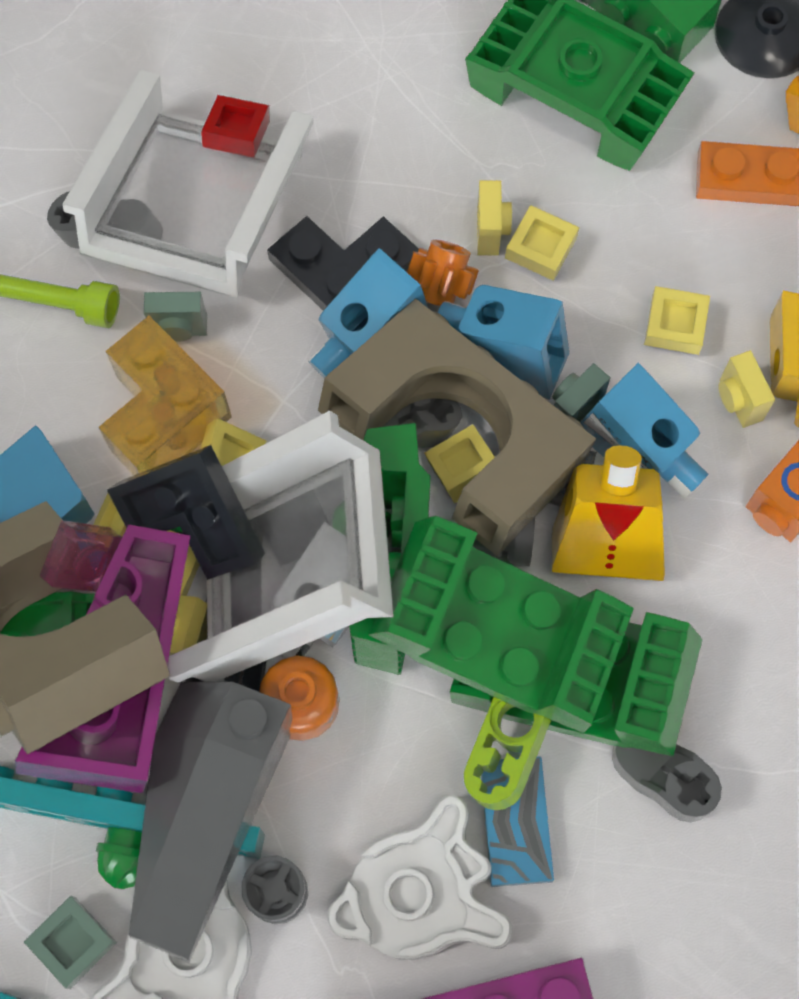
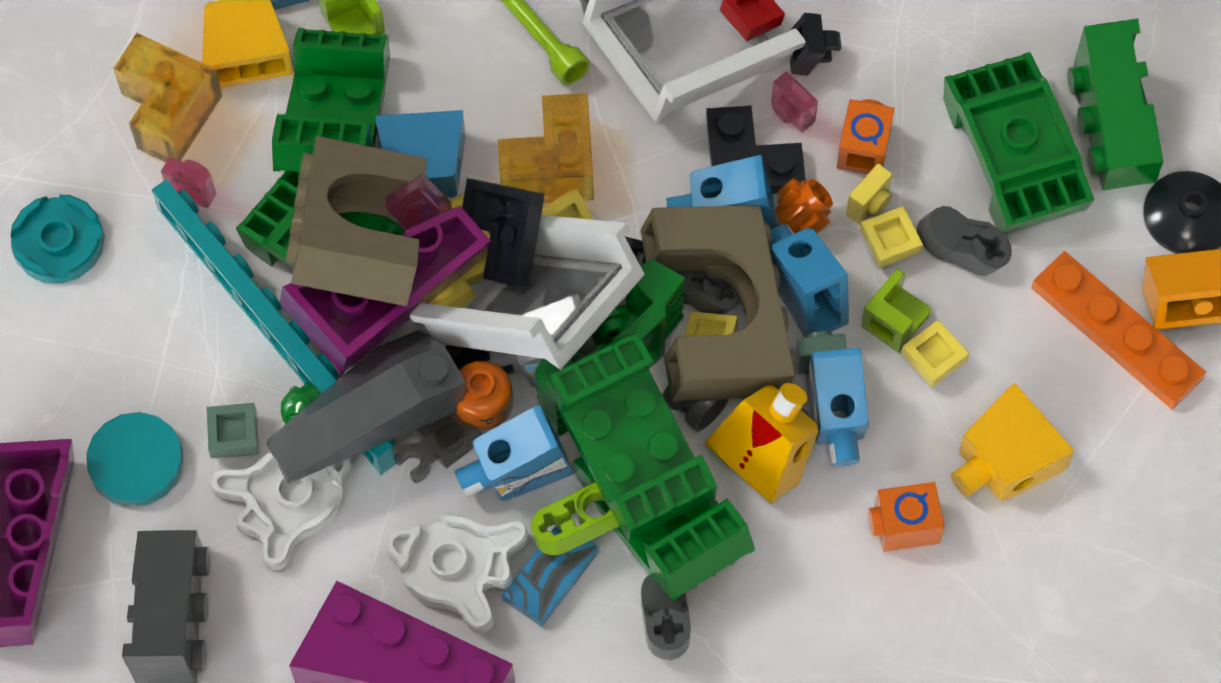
camera: 40 degrees right, 5 degrees down
(177, 313) = (610, 107): sand green plate -> none
(267, 883) = (369, 484): dark grey wheel -> none
(298, 775) = (441, 440): none -> clear smoke plate
(325, 118) = (817, 45): none -> black tile
(344, 183) = (793, 102): none -> clear pink plate
(394, 708) = (516, 457): none -> dark azure torso
(438, 167) = (865, 135): none -> orange brick
(608, 312) = (894, 313): none -> lime panel
(614, 195) = (964, 240): none -> dark grey piece
(745, 389) = (934, 429): light yellow plate -> none

